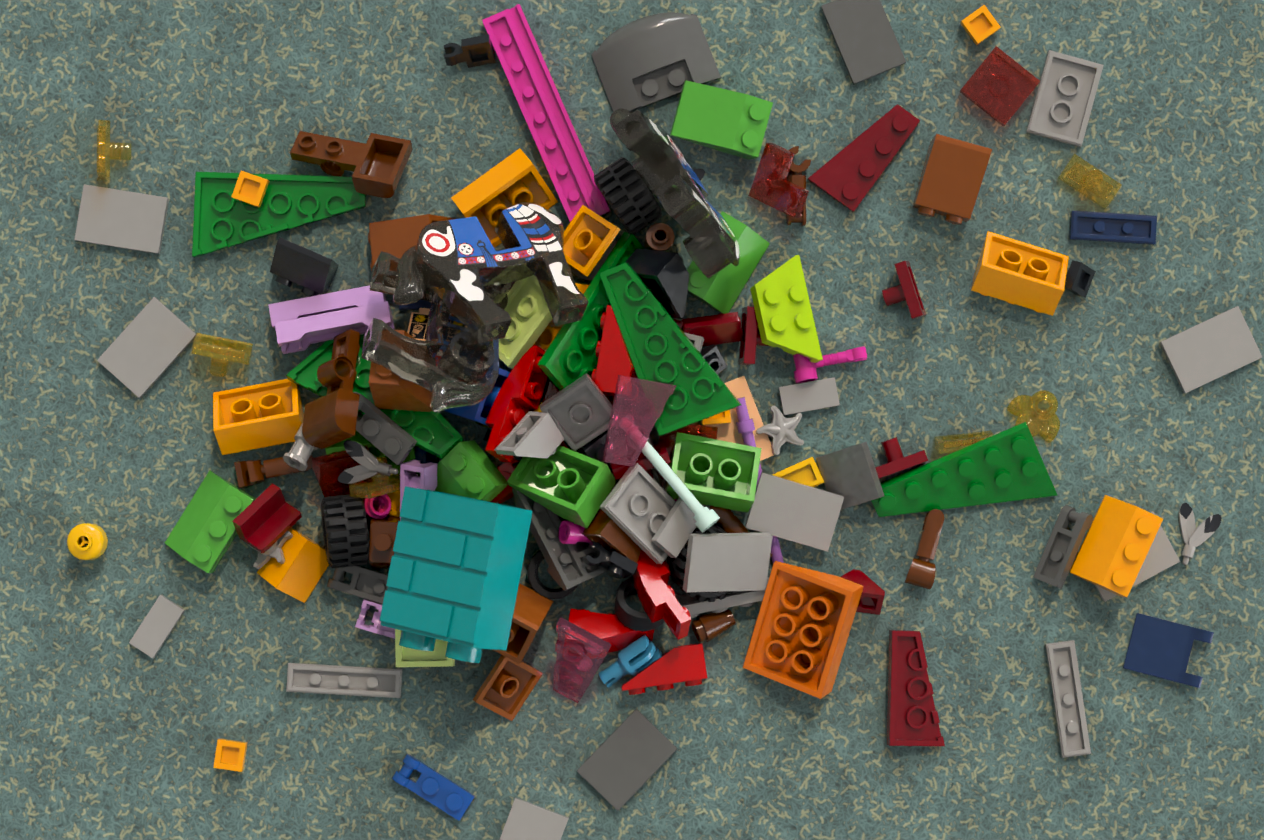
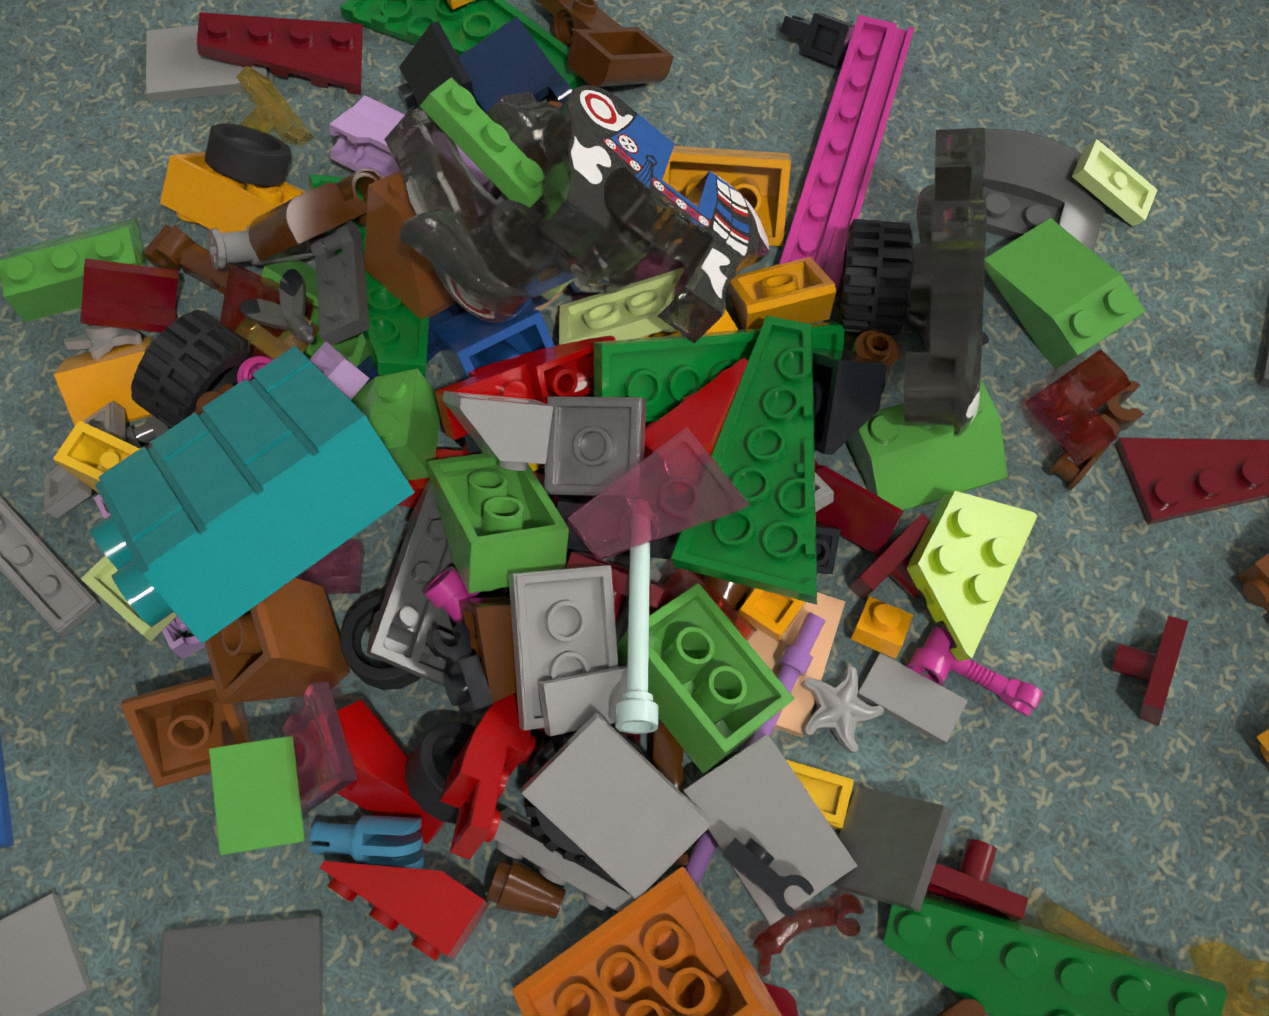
camera: 40 degrees right, 20 degrees down
(196, 299) = (306, 48): none -> dark red wing
(236, 378) = (247, 155): none -> black tyre
(323, 601) = (62, 488): none -> light grey tile
(330, 223) = (511, 64): none -> dark blue flag
(353, 605) = (91, 453): none -> yellow slope
(409, 317) = (485, 142): none -> bright green plate
(570, 685) = (256, 795): none -> bright green slope
(701, 25) = (1114, 183): none -> yellowish green plate
(770, 373) = (882, 627): none -> light orange plate
(802, 535) = (754, 864): none -> black plate
(852, 519) = (774, 938): none -> clear red piece

